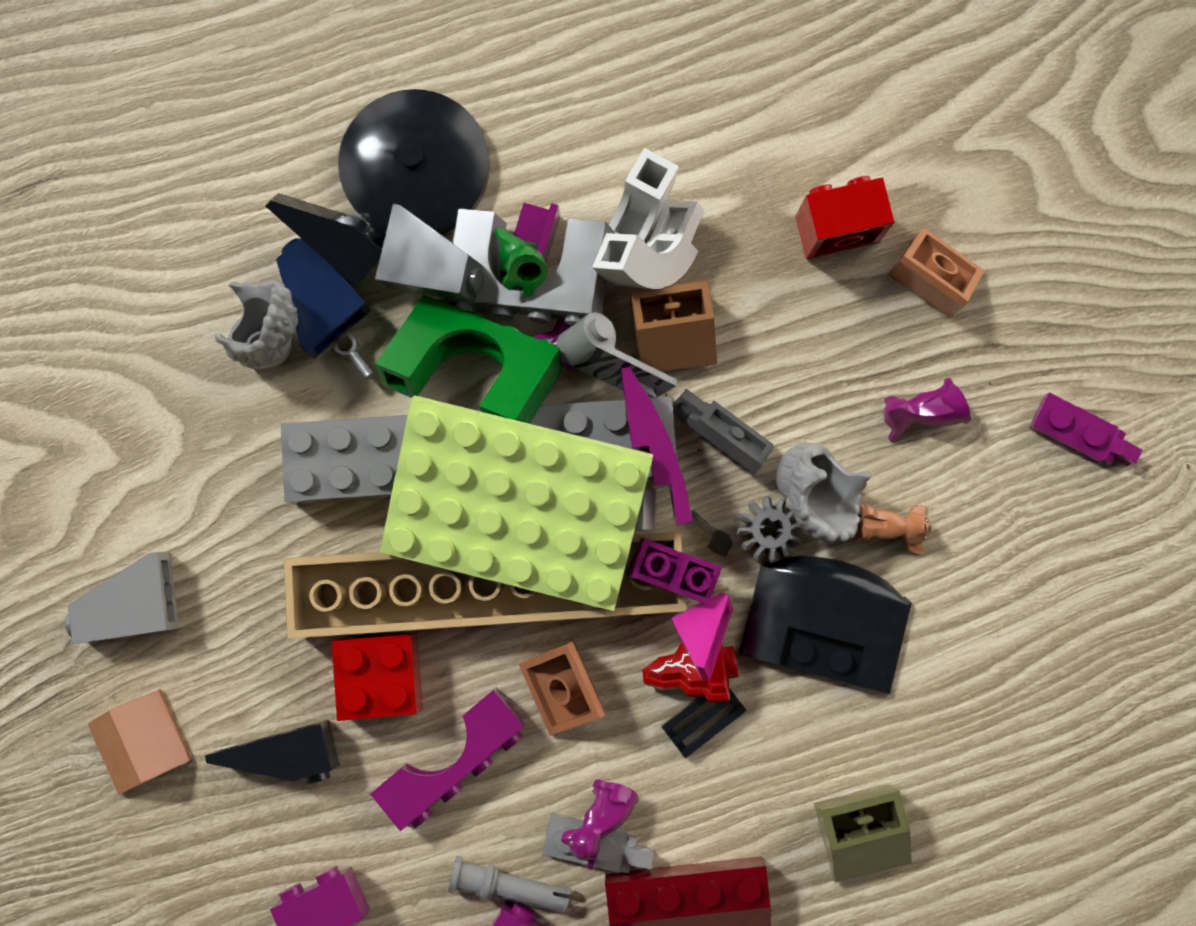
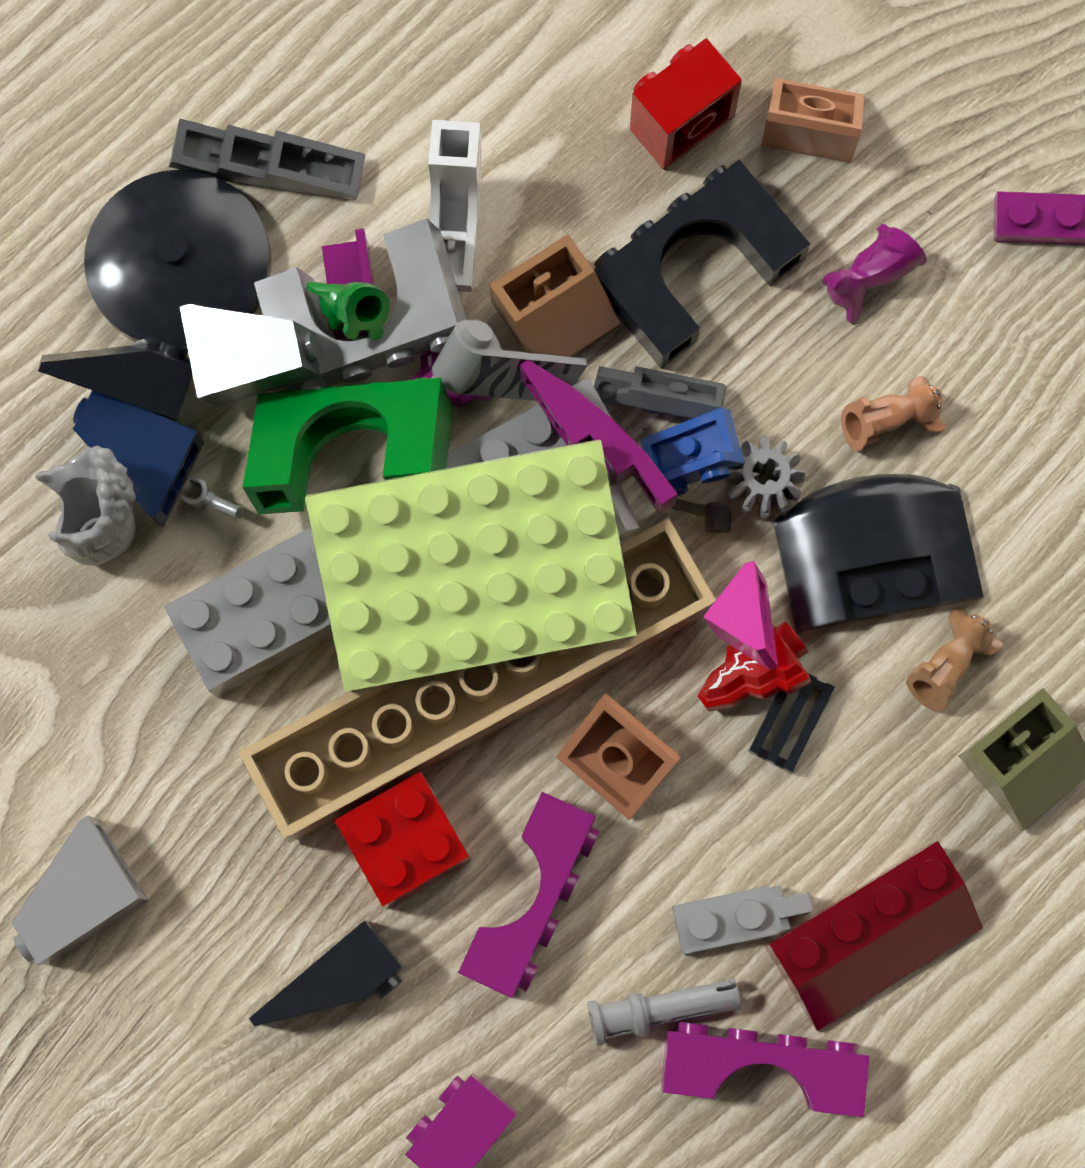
camera: 25 degrees left, 5 degrees down
(139, 741) = (161, 1047): nougat slope -> none
(514, 118) = (268, 161): none -> dark grey slope
(606, 815) = (735, 869): magenta animal -> none
(659, 263) = (507, 235): white arch -> none
(674, 571) = (682, 561): magenta slope -> none
(724, 487) = (696, 450): none -> blue bracket
(821, 492) = (801, 407): light grey hair -> none
(824, 741) = (935, 681): none -> medium nougat animal
(840, 311) = (726, 207): none -> black arch

